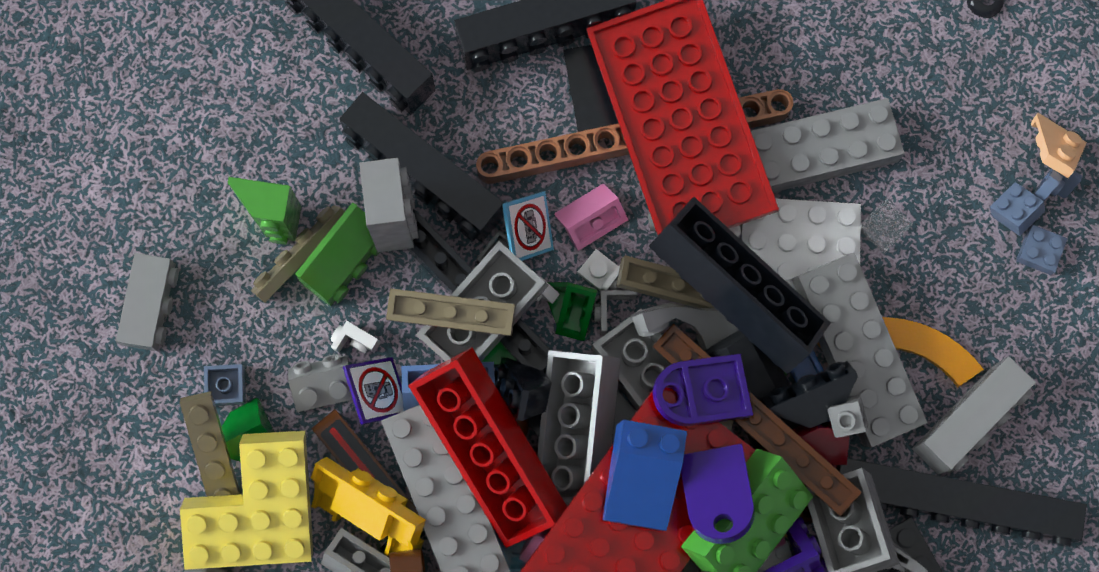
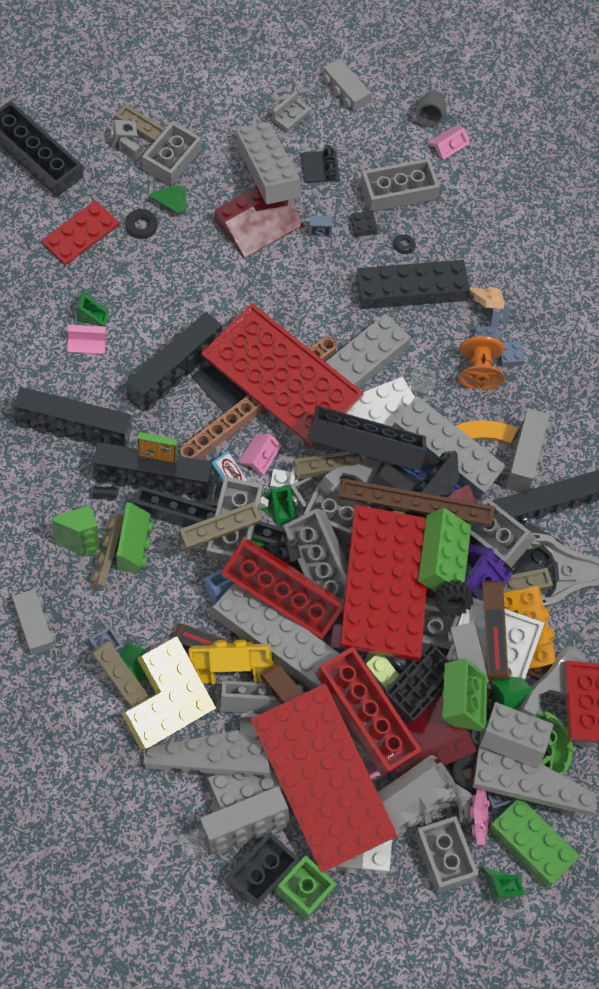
camera: 35 degrees left, 15 degrees down
(319, 383) = (161, 615): light grey bracket -> none
(345, 164) = (105, 492): none -> black pin
(360, 339) = (167, 579): white bracket -> none
(375, 389) = (195, 601): piece -> none
(388, 204) = (153, 486): light grey brick -> none
(430, 147) = (157, 447): none -> tile
(644, 474) = (376, 551): blue slope -> none
(706, 391) = (383, 498): dark purple tile -> none
(718, 489) = (420, 539): dark purple tile -> none
(848, 417) = (464, 478): light grey bracket -> none
(958, 70) = (412, 284): none -> black brick
(994, 231) = (481, 352): none -> orange piece

